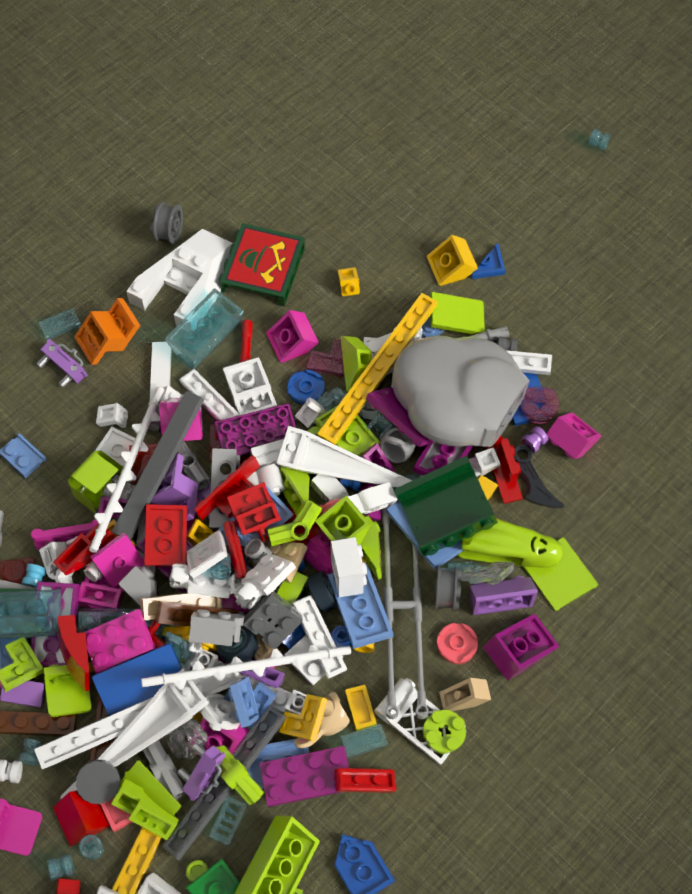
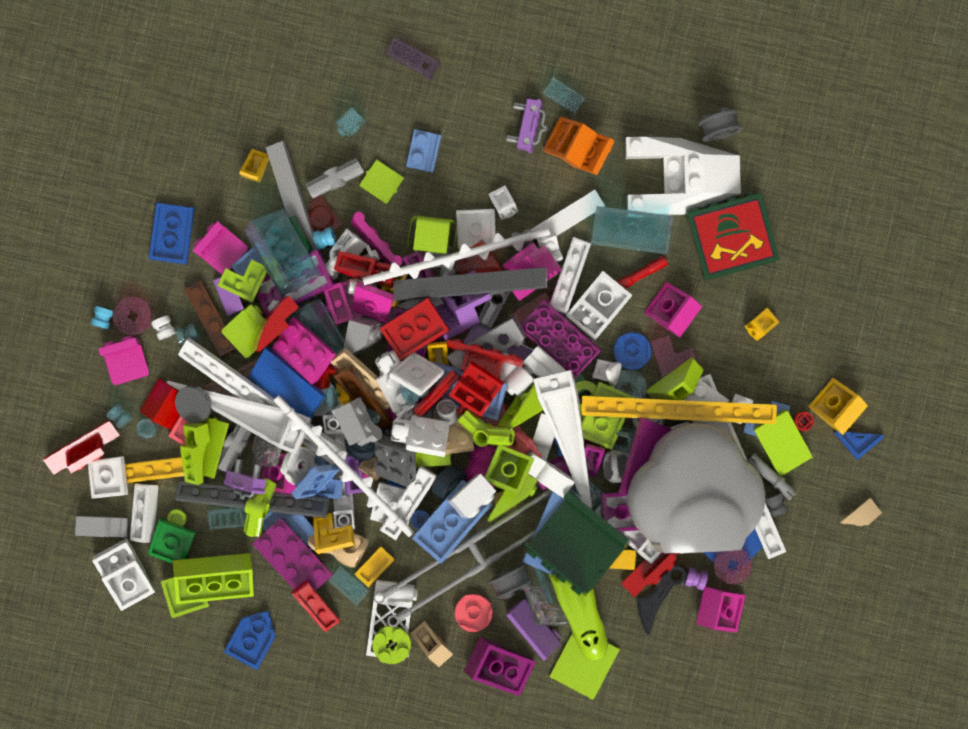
camera: 60 degrees right, 25 degrees up
(22, 504) = (381, 181): none -> lime piece
(449, 287) = (803, 421): none -> red wheel
(554, 289) = (863, 514): none -> tan slope

